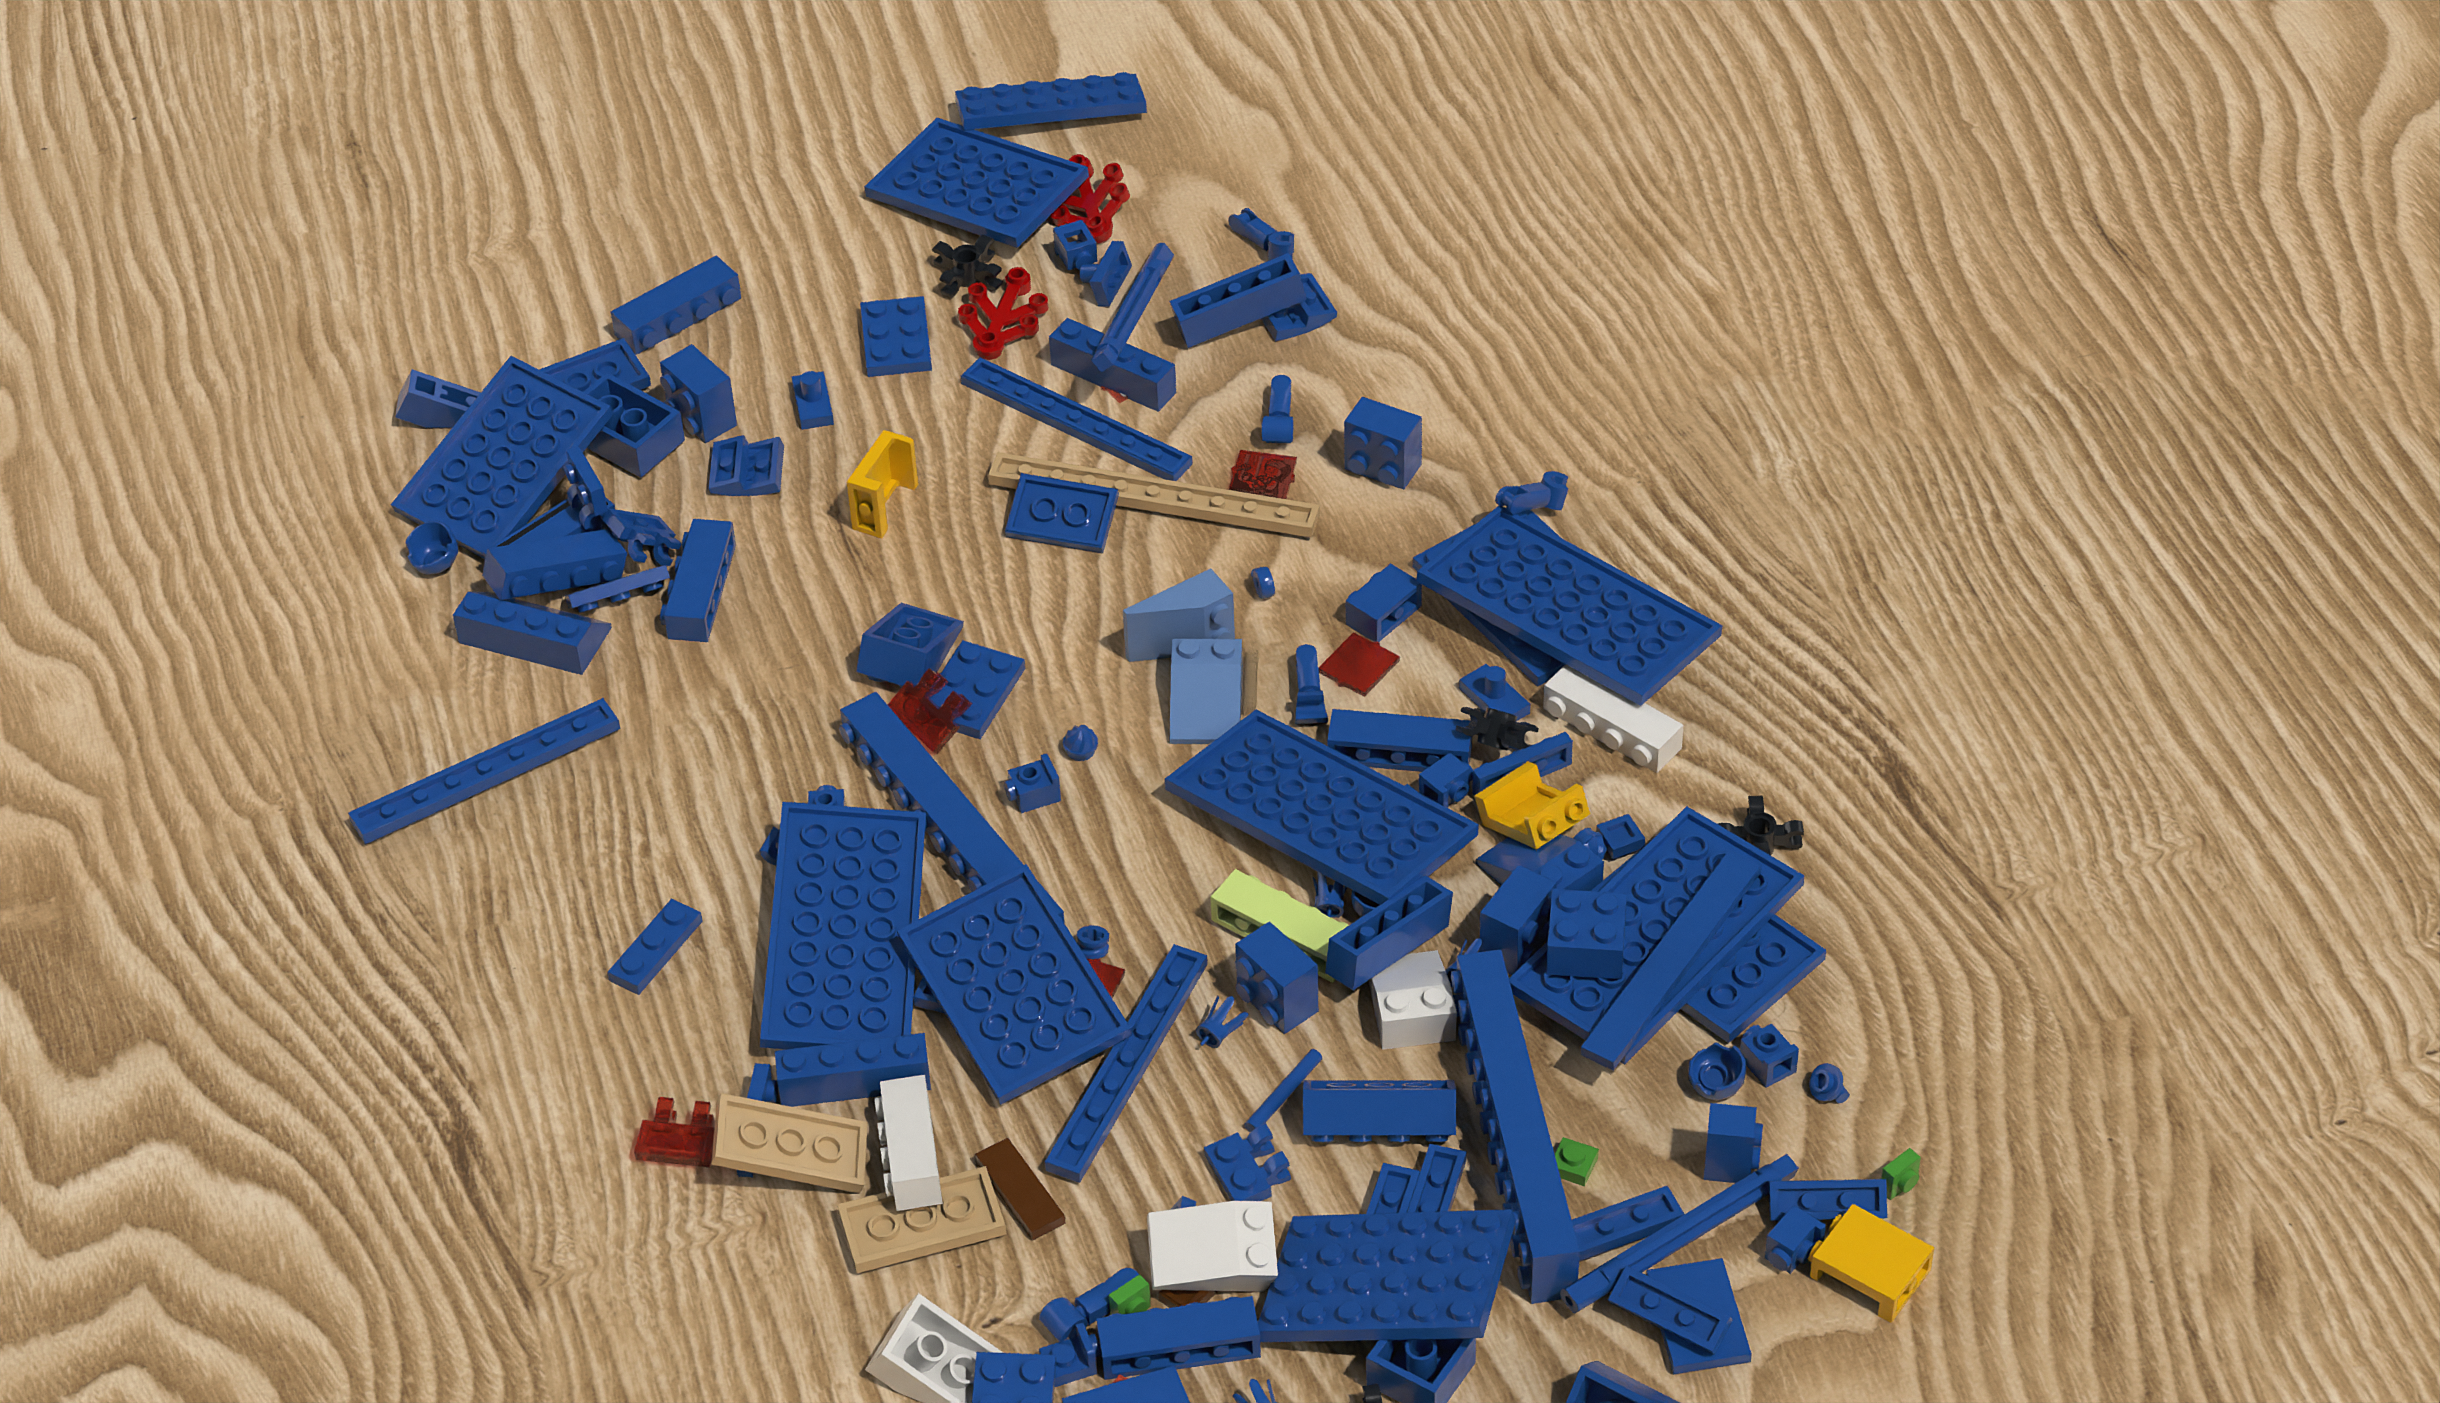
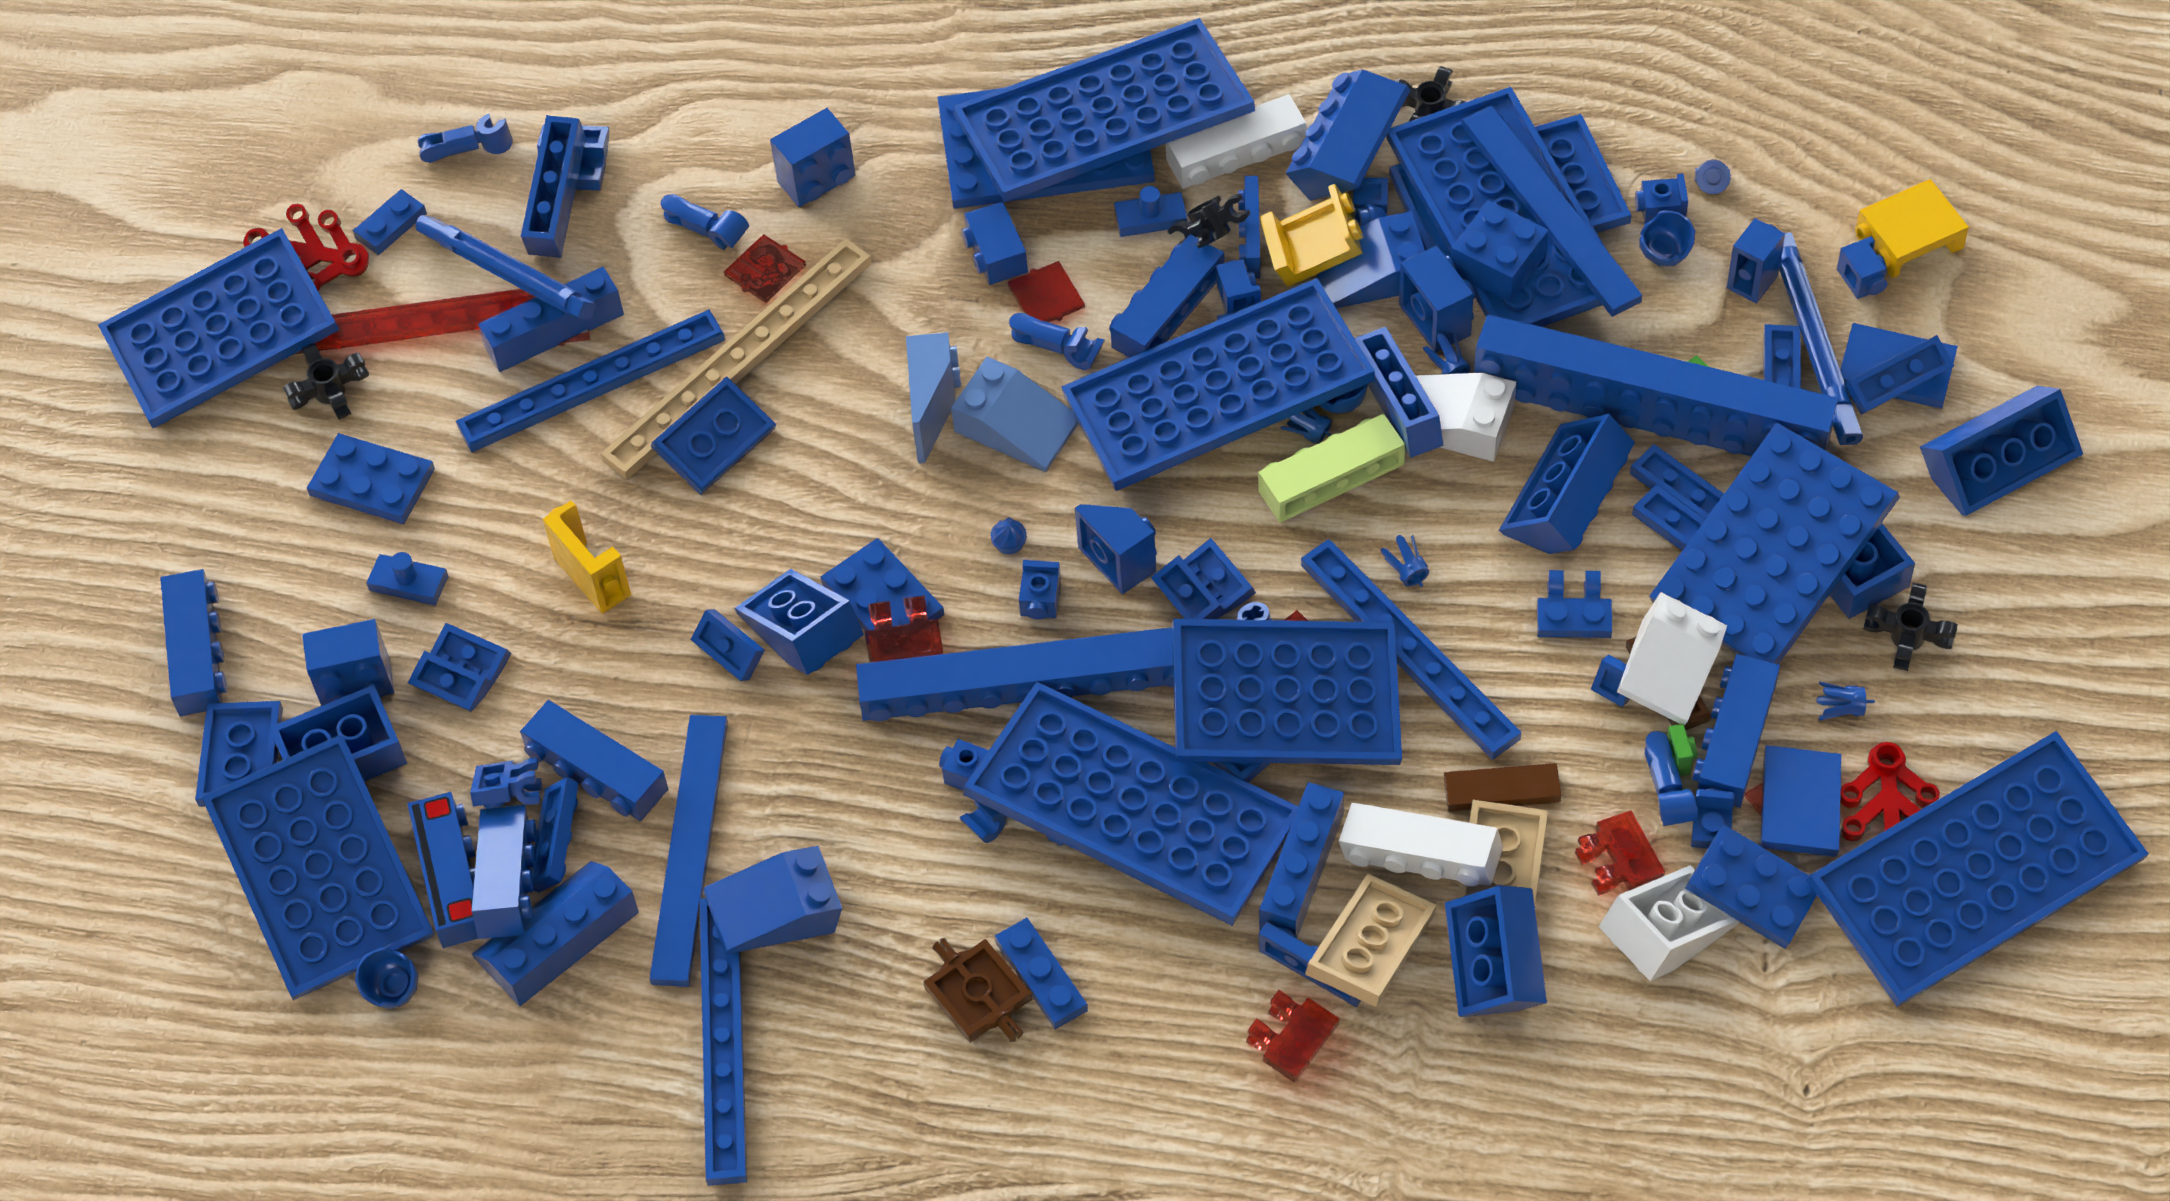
camera: 60 degrees left, 10 degrees up
(432, 401) = (181, 897): blue slope -> none
(585, 487) = (430, 791): blue plate -> none
(612, 909) = (977, 990): none -> reddish brown plate
(622, 743) = (775, 901): none -> blue slope
(659, 673) = (689, 851): none -> blue tile
(827, 1240) = (1495, 951): none -> blue slope
(858, 611) = (727, 644): none -> blue plate
(991, 342) = (410, 383): red plant -> none
(999, 1305) = (1628, 849): none -> clear red plate
(1050, 101) = (150, 227): blue plate -> none
(1061, 286) = (419, 319): none -> clear red tile
(1076, 252) = (368, 285): blue brick -> none
(1099, 810) = (1117, 543): none -> blue slope
(1108, 274) = (422, 277): blue tile -> none
(1111, 894) = (1203, 583): none -> blue slope
(1149, 231) = (389, 222): none -> blue plate
(1263, 582) = (905, 319): blue piece -> none
(1276, 977) = (1396, 494): blue brick -> none
(1284, 1090) = (1504, 549): blue bar -> none
(1548, 493) = (952, 75): blue piece -> none
(1666, 780) = (1346, 133): none -> blue slope
(1827, 1197) = (1833, 228): blue plate -> none
(1901, 1173) = (1834, 171): bright green plate -> none

